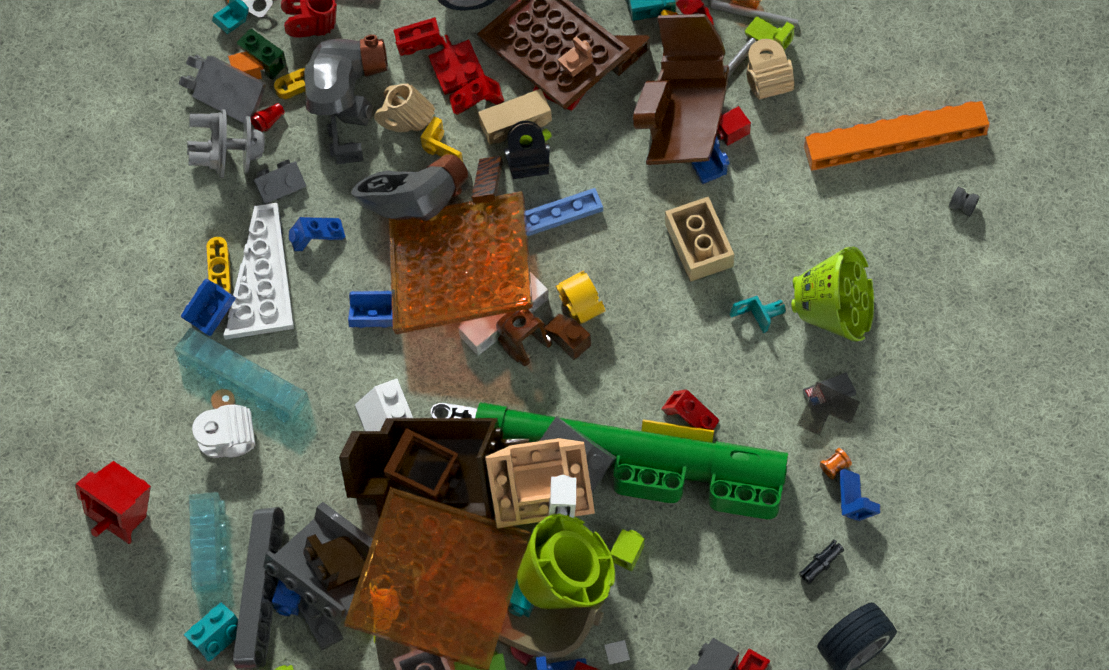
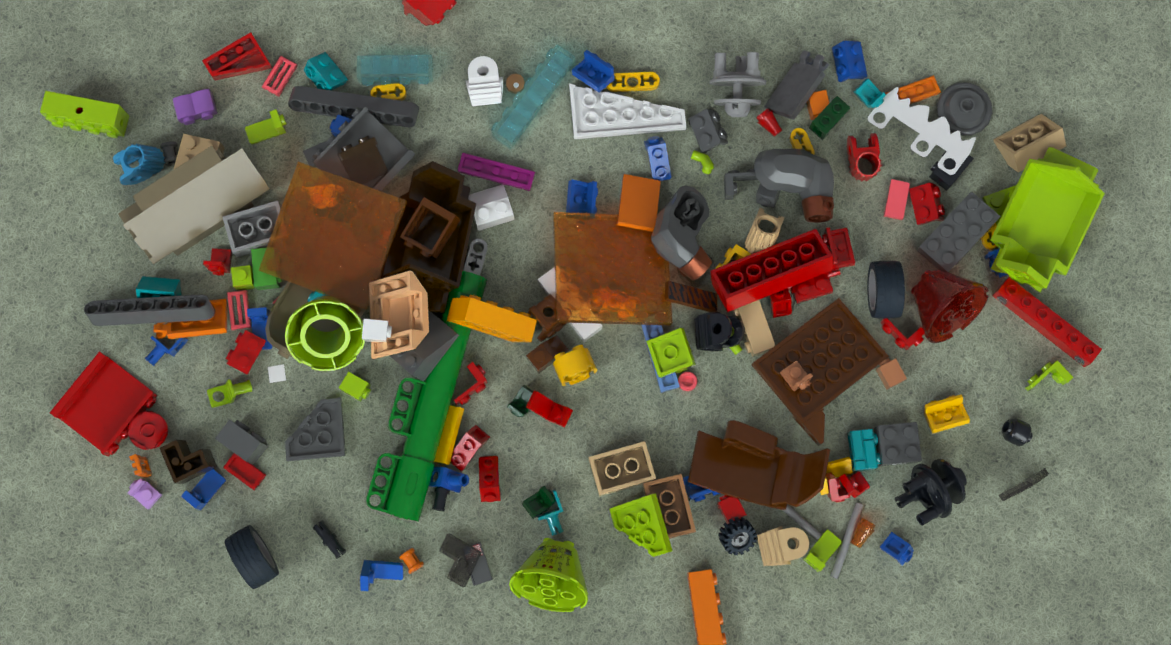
camera: 90 degrees right, 15 degrees up
(190, 40) = (849, 60): none -> blue bracket
(233, 551) = (389, 88): none -> yellow beam
(321, 179) = (705, 161): none -> lime arm
(339, 411) = (496, 171): none -> magenta plate
(374, 245) = (638, 202): none -> orange tile
(451, 94) = (771, 270): none -> red brick
(532, 383) = (491, 319): none -> light orange brick
(556, 194) = (671, 353): none -> lime bracket
(586, 182) = (687, 381): none -> coral tile
(598, 408) = (477, 372): none -> red bracket
(628, 355) = (520, 401): none -> dark green bracket
(637, 320) = (549, 409): none -> red bracket
(690, 587) = (319, 433): none -> dark grey plate
(725, 382) = (489, 479): none -> red bracket
(732, 426) = (449, 479): none -> blue bracket
(740, 186) = (673, 504): none -> medium nougat brick
(746, 437) = (440, 498): none -> black pin
(747, 326) = (539, 502): none -> dark green bracket
(762, 206) = (643, 524): none -> lime plate
(764, 114) = (737, 536): none -> black wheel

